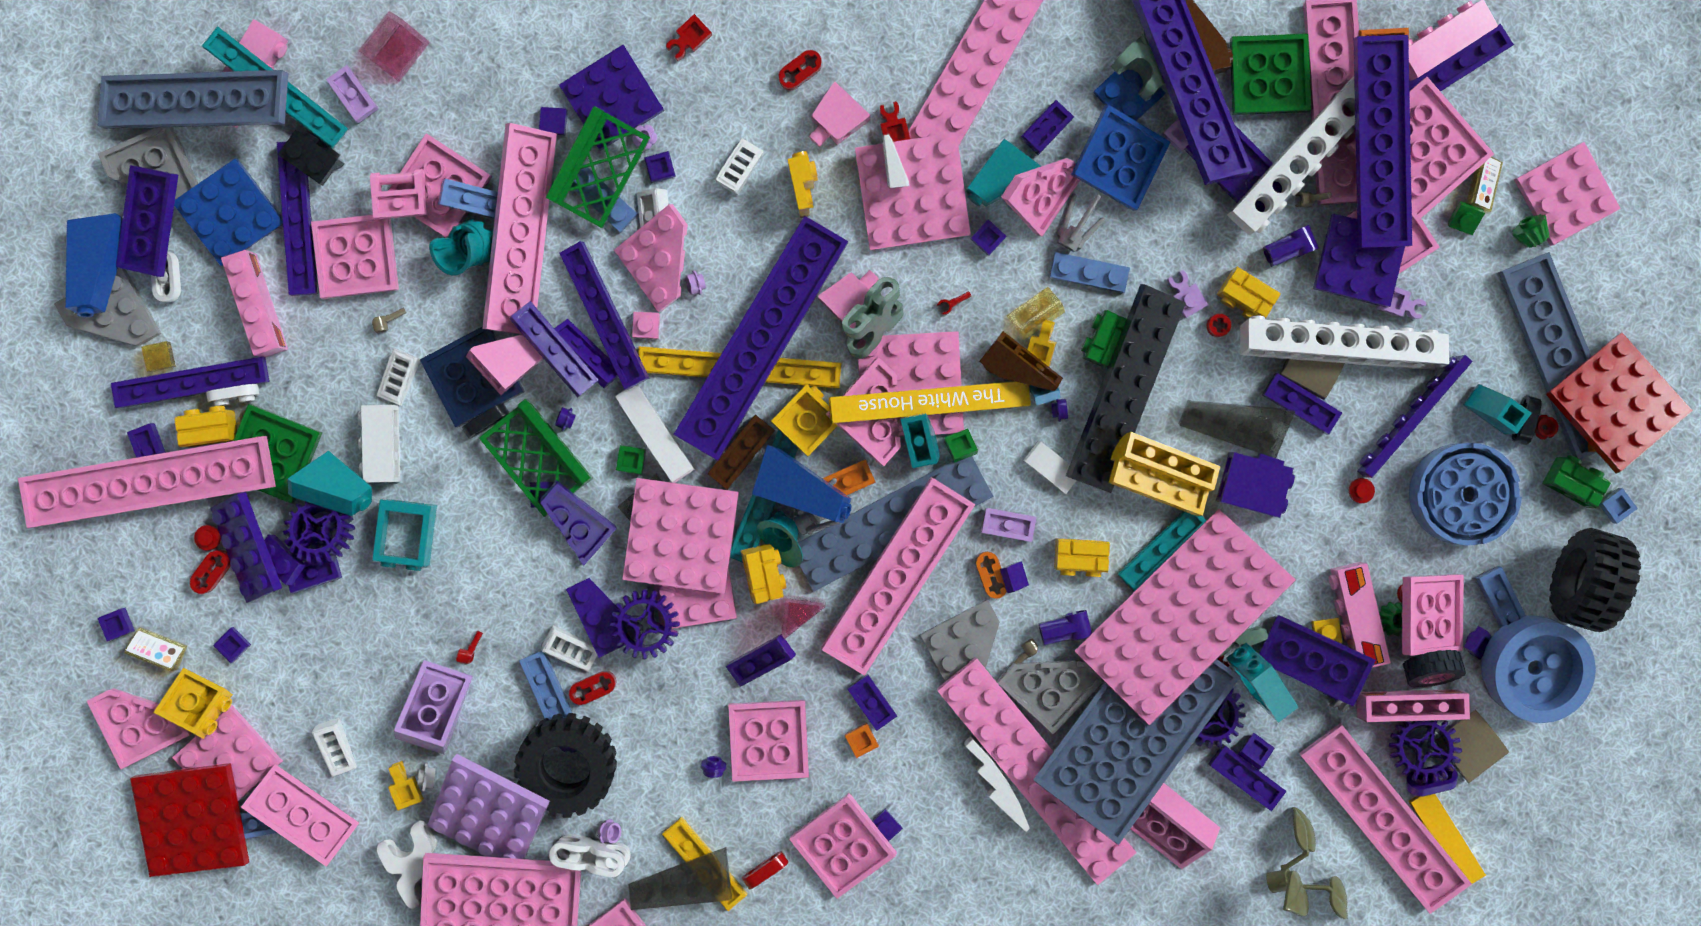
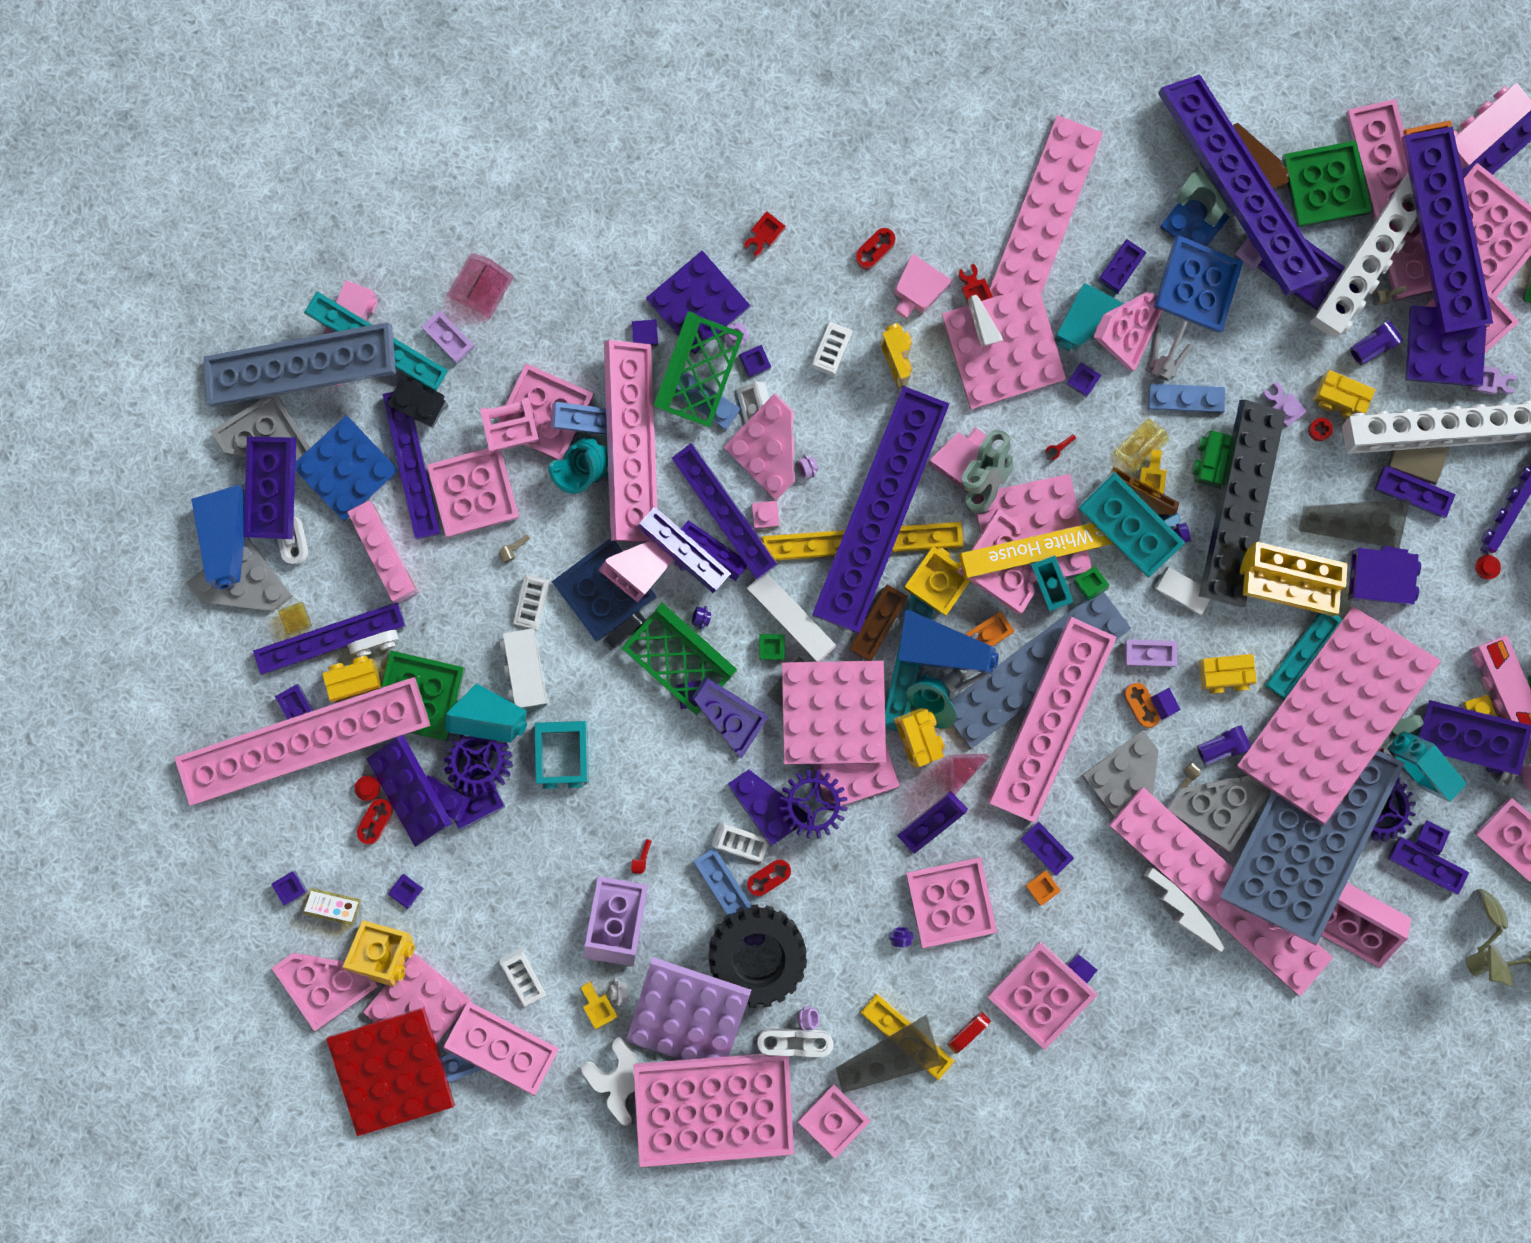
camera: 10 degrees left, 5 degrees down
(1009, 393) = (1131, 524): none -> teal tile

